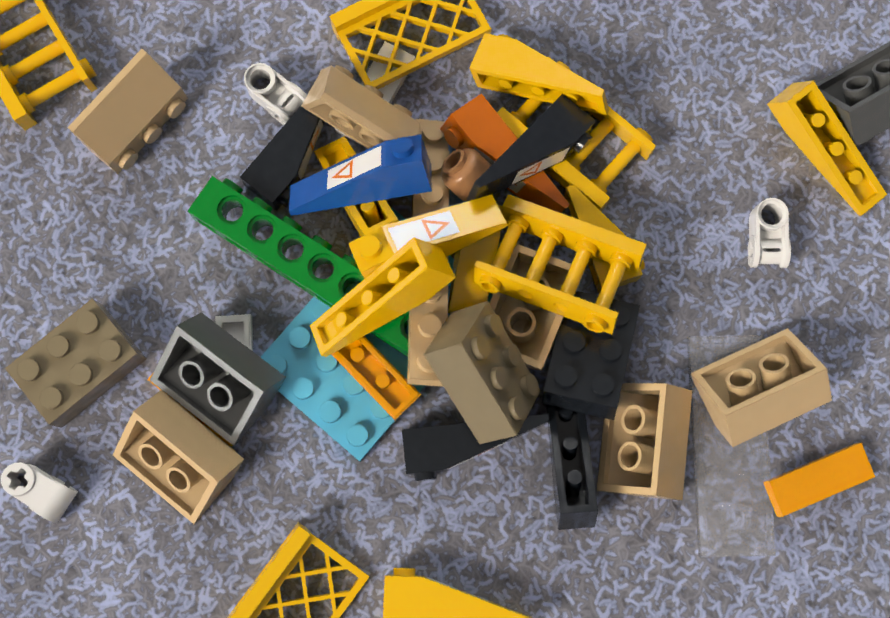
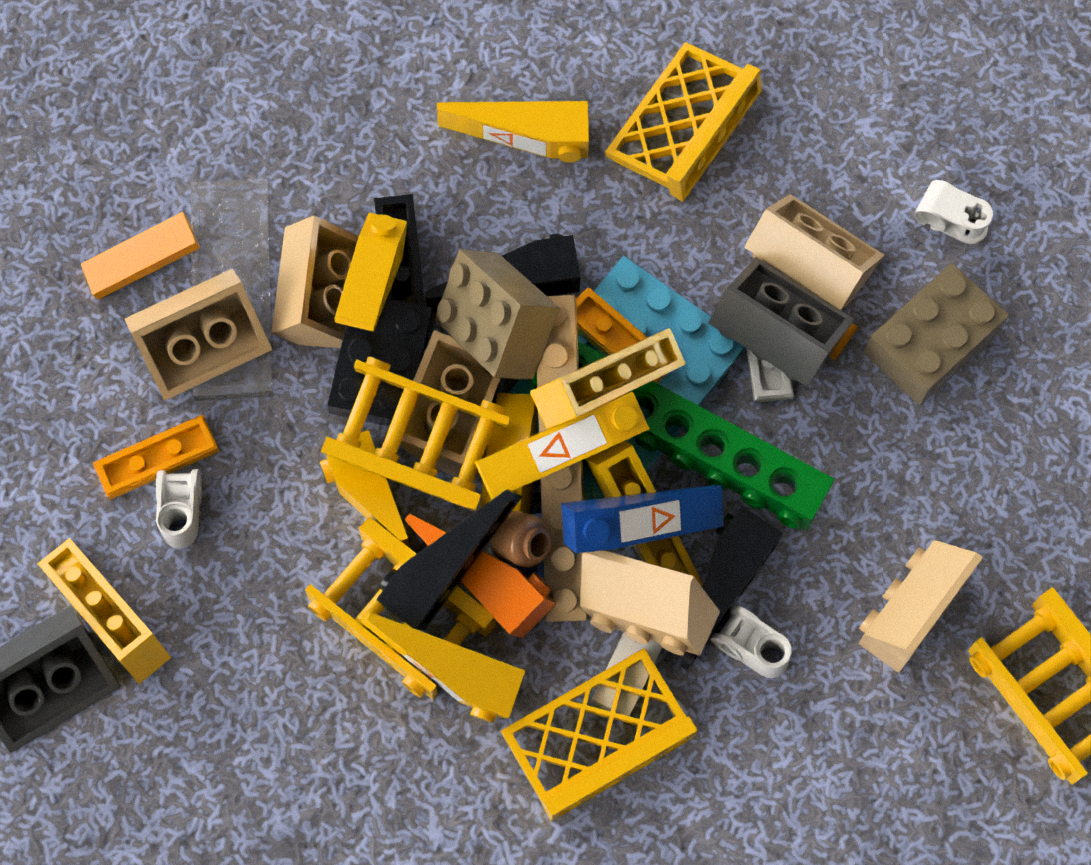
camera: 175 degrees right, 10 degrees down
(601, 418) = (371, 271): none -> yellow slope
(790, 285) = (164, 451): none -> light orange tile

